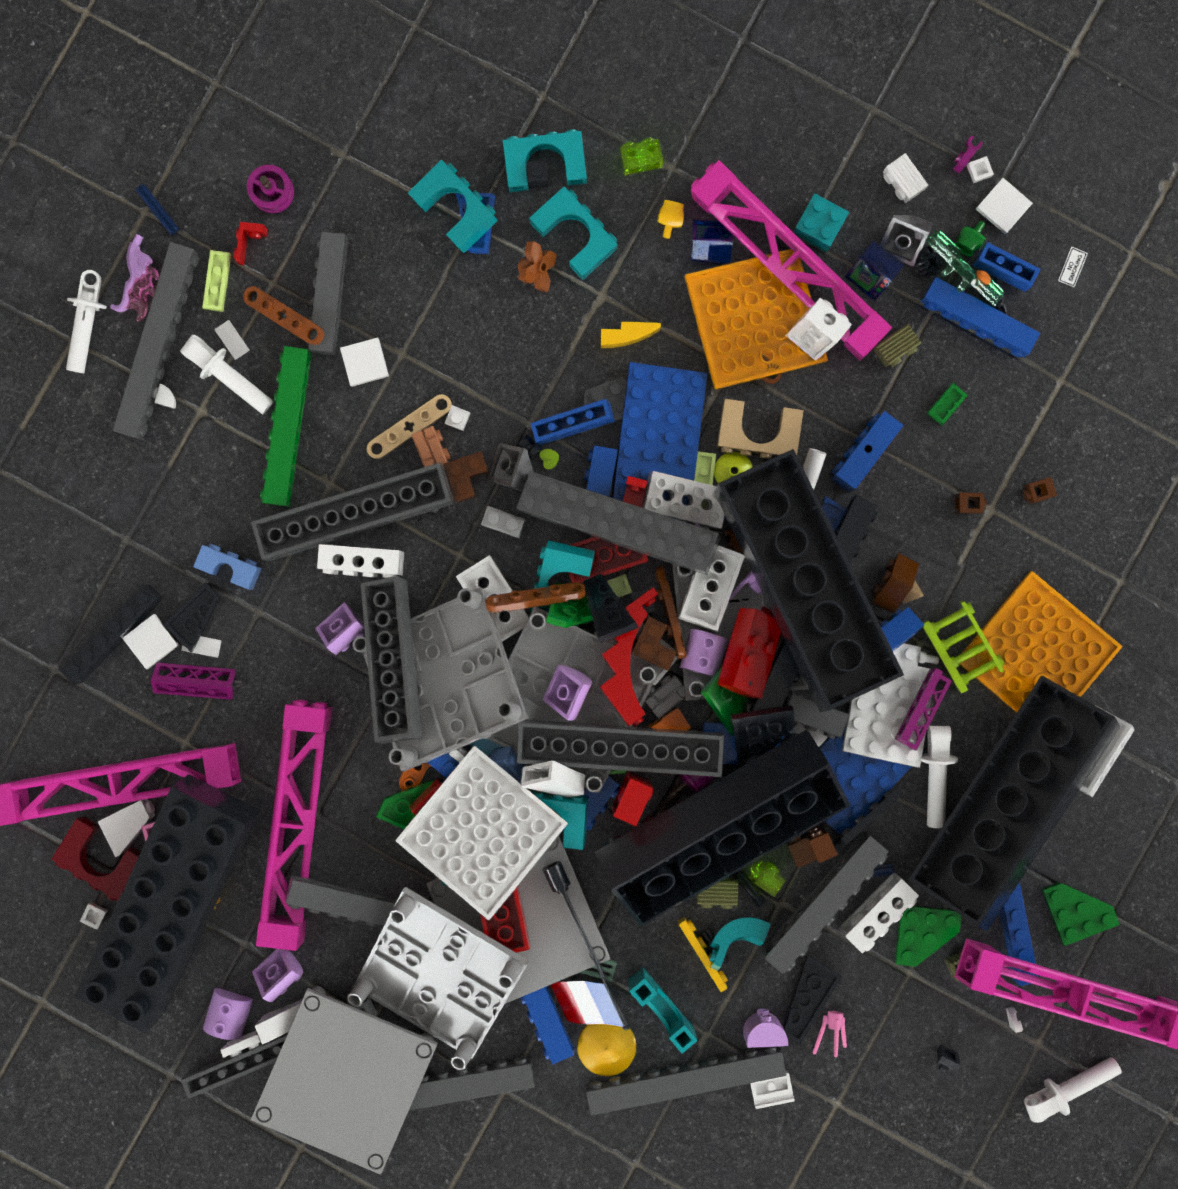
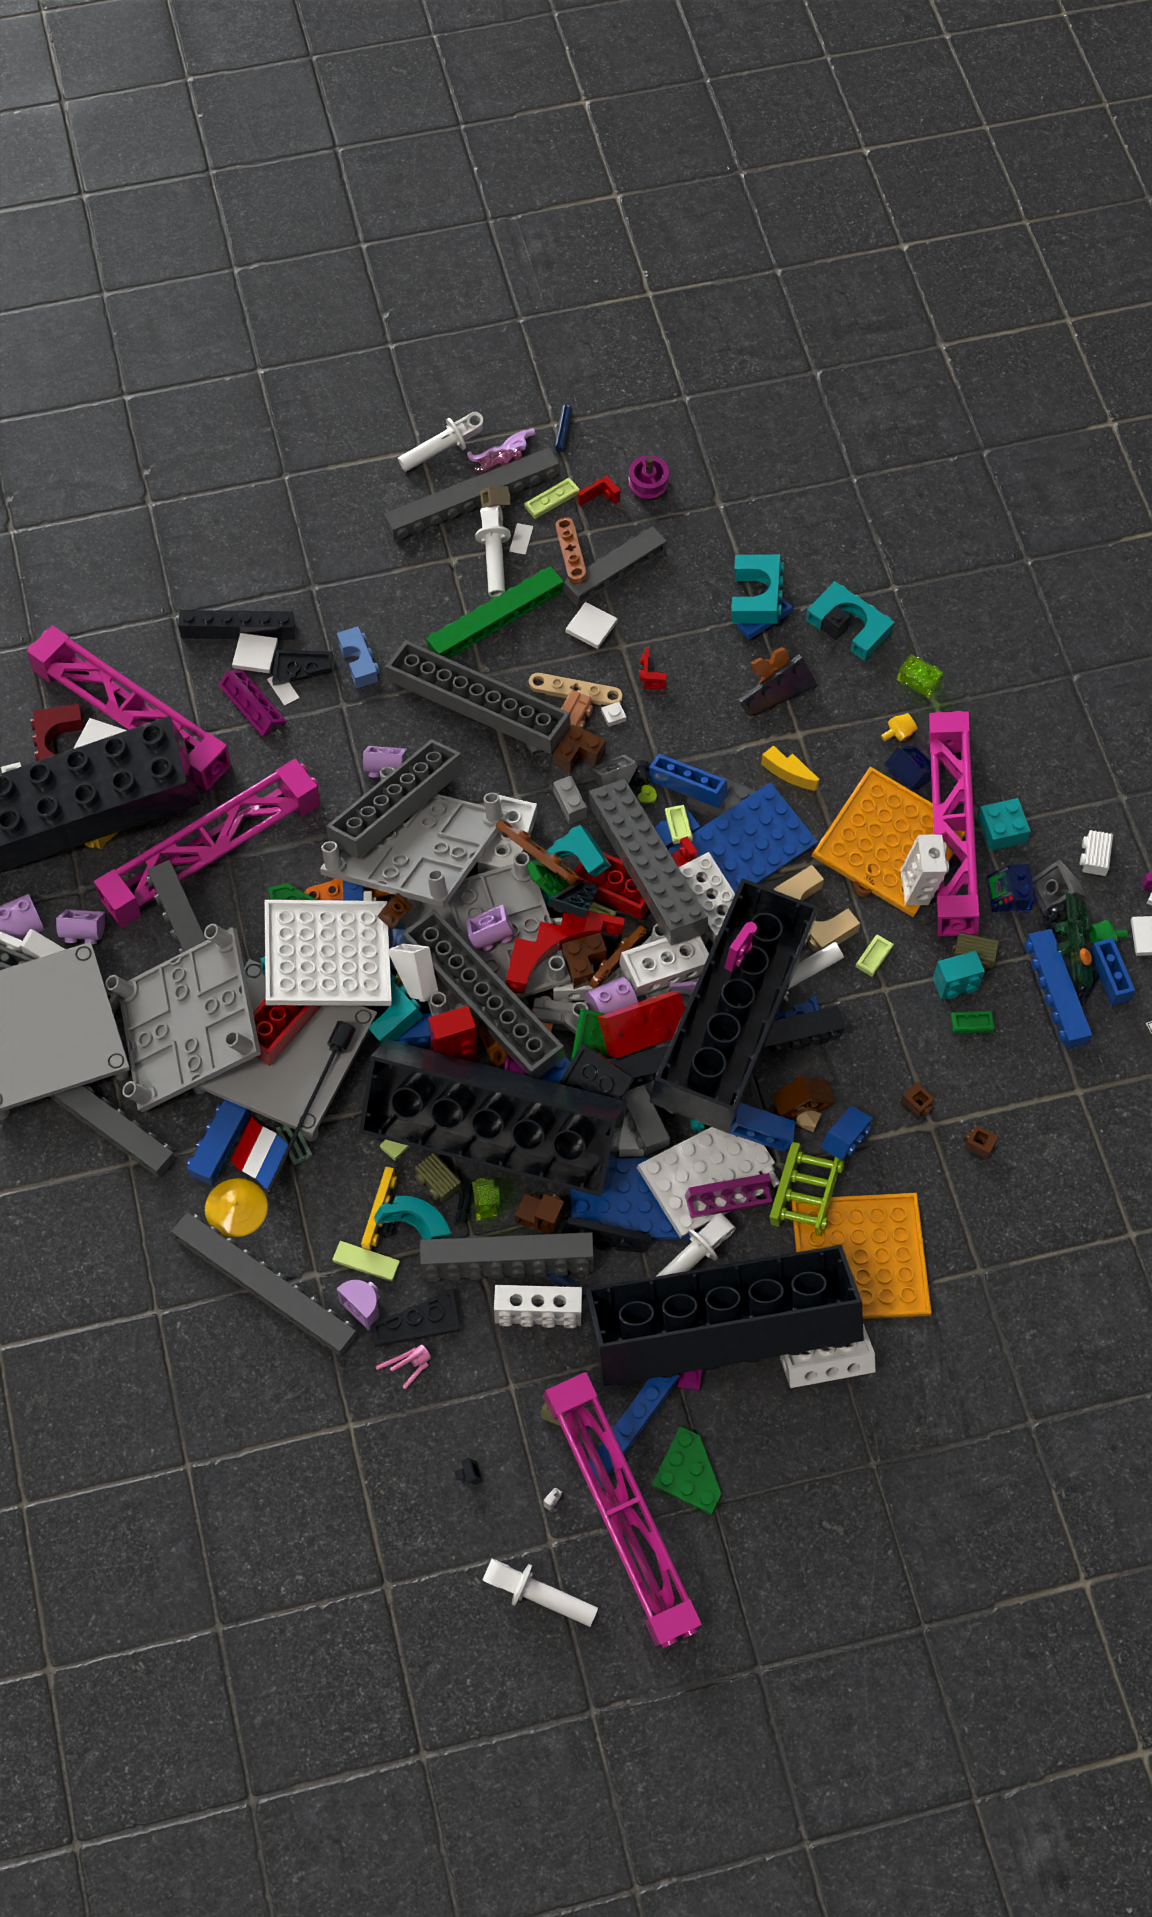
camera: 45 degrees right, 25 degrees down
(165, 397) = (439, 530): white tile -> none
(181, 331) = (495, 496): none -> dark tan brick
(329, 561) = (447, 727): white brick -> none
(458, 359) = (651, 680): none -> red bracket
(490, 744) = (394, 911): none -> reddish brown brick
(554, 270) = (780, 686): none -> black wing
(565, 207) = (829, 700): teal arch -> none
(603, 465) = (678, 823): none -> yellowish green tile
(648, 992) = (304, 1227): teal arch -> none
(736, 991) = (366, 1261): none -> yellowish green tile
(772, 1092) = (316, 1357): white plate -> none
(786, 553) = (740, 946): none -> dark pink plate
(831, 420) = (874, 955): none -> yellowish green tile
(867, 450) = (876, 990): blue brick -> none
(909, 381) = (958, 975): none -> teal brick
(923, 932) = (552, 1362): green plate -> none
(954, 581) = (847, 1133): none -> blue brick

